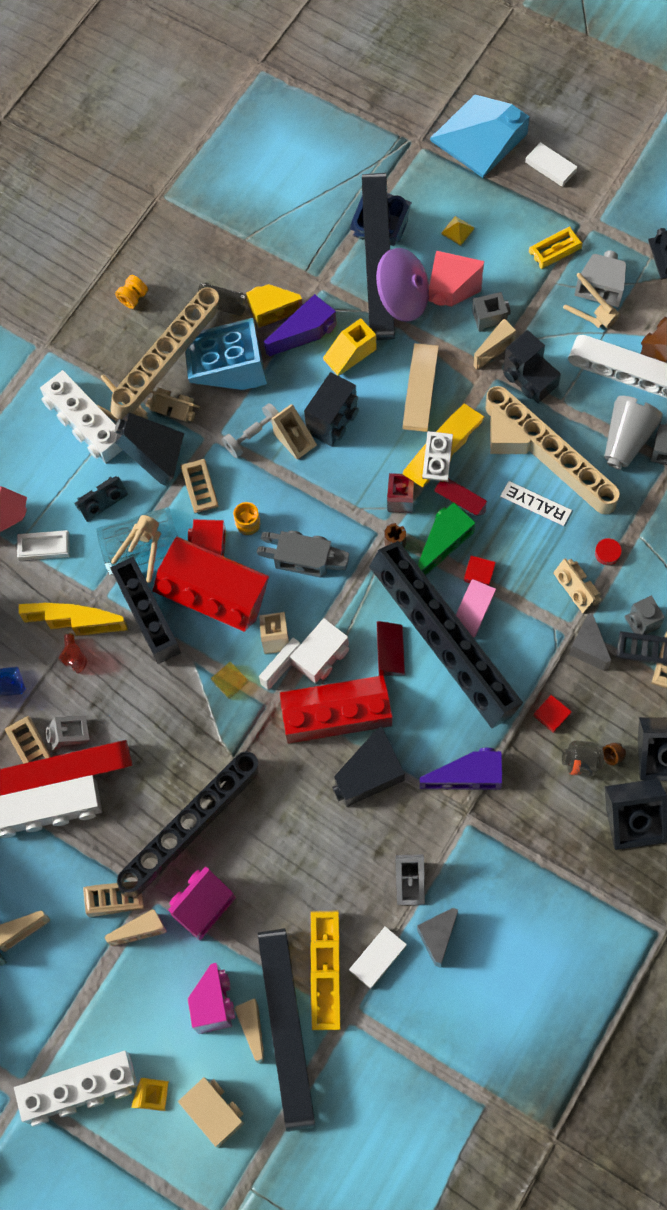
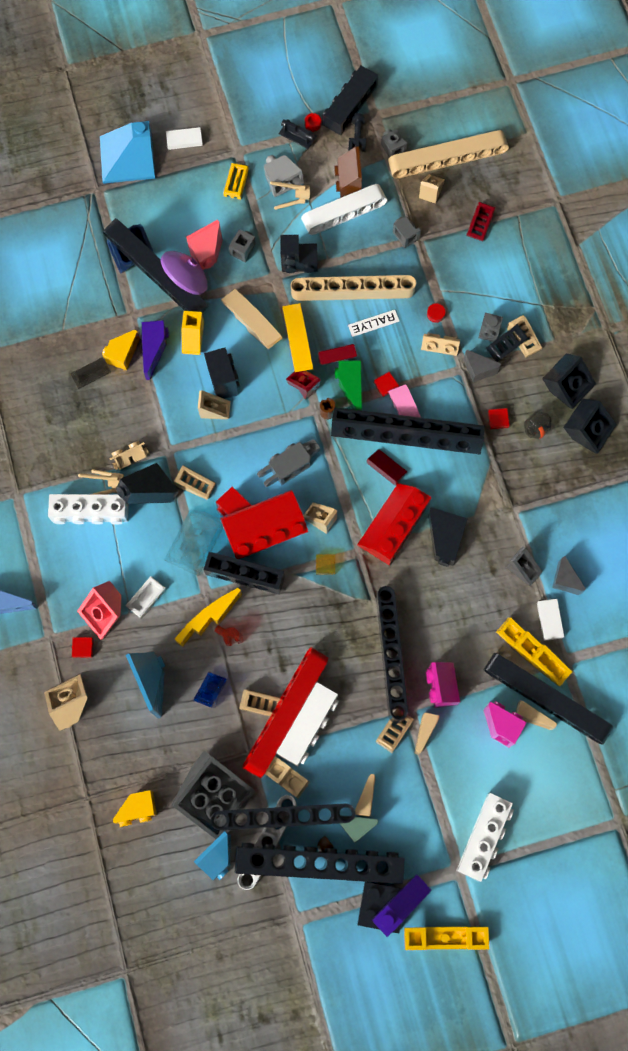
camera: 50 degrees left, 5 degrees up
(67, 731) = (274, 676): light grey bracket -> none
(106, 495) = (149, 533): black hinge -> none
(131, 291) = (34, 415): light orange wheel -> none
(143, 531) = (203, 531): tan plant -> none
(150, 1094) = (521, 801): yellow slope -> none
(161, 361) = (98, 436): tan beam -> none
(211, 1111) = (560, 774): tan brick -> none
(227, 357) = (129, 400): dark azure slope -> none
(233, 445) = (189, 444): light grey wheel -> none
(243, 514) = (240, 470): light orange wheel -> none
(278, 665) = (344, 536): white tile -> none
(320, 651) = (355, 502): white brick -> none
(437, 456) = (304, 345): white slope -> none
(457, 230) = (174, 218): yellow slope -> none
(471, 772) = (498, 479): dark purple slope -> none
(495, 344) = (264, 257): tan slope -> none
(506, 437) = (322, 302): tan slope -> none
(614, 748) = (551, 404): reddish brown hinge -> none
(629, 430) = (381, 240): light grey cone -> none

